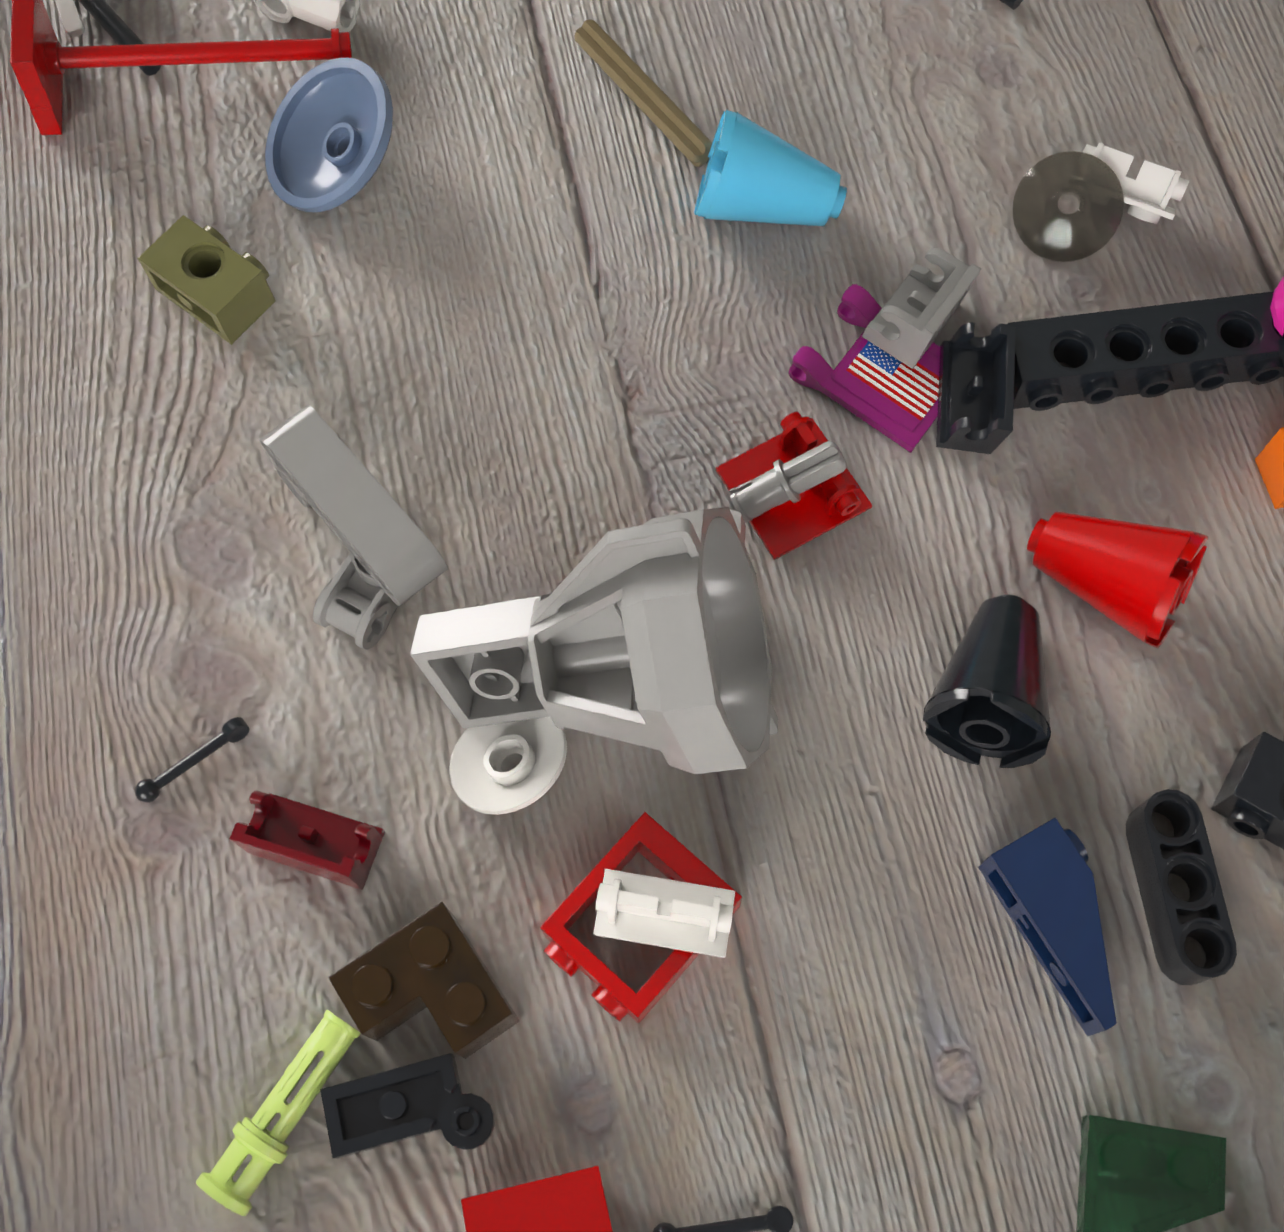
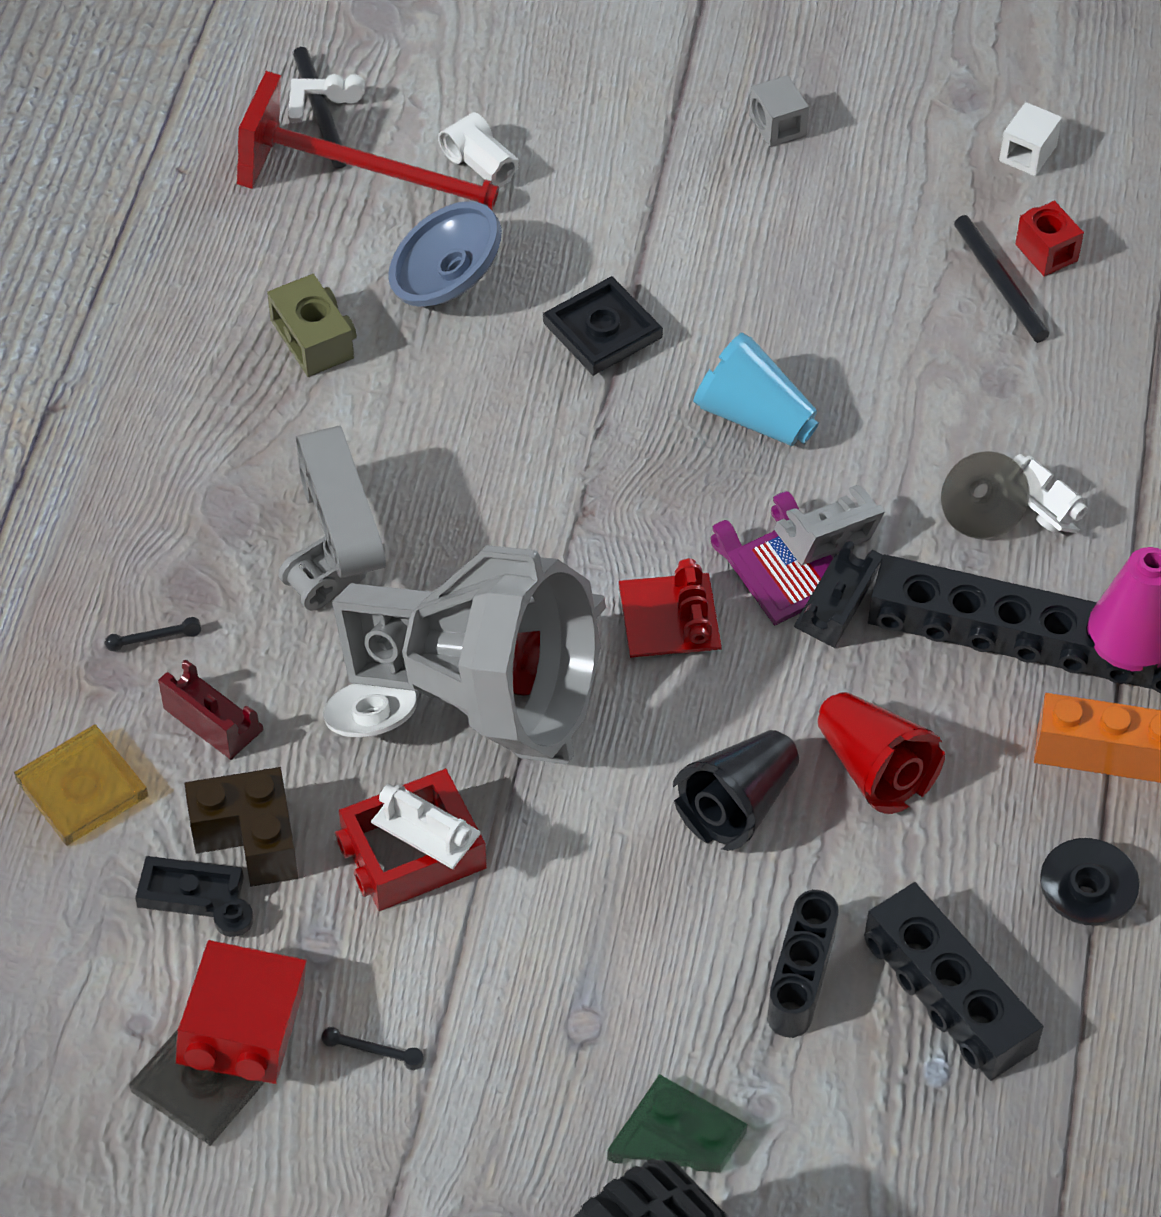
camera: 20 degrees right, 15 degrees down
(189, 1011) = (81, 784): none -> clear yellow tile
(269, 1147) = (94, 872): yellowish green pin -> none
(545, 158) = (602, 325): none -> black plate
(644, 92) = (700, 298): dark tan axle -> none
(787, 480) = (659, 600): light grey axle -> none
(1056, 910) = (706, 934): dark blue slope -> none

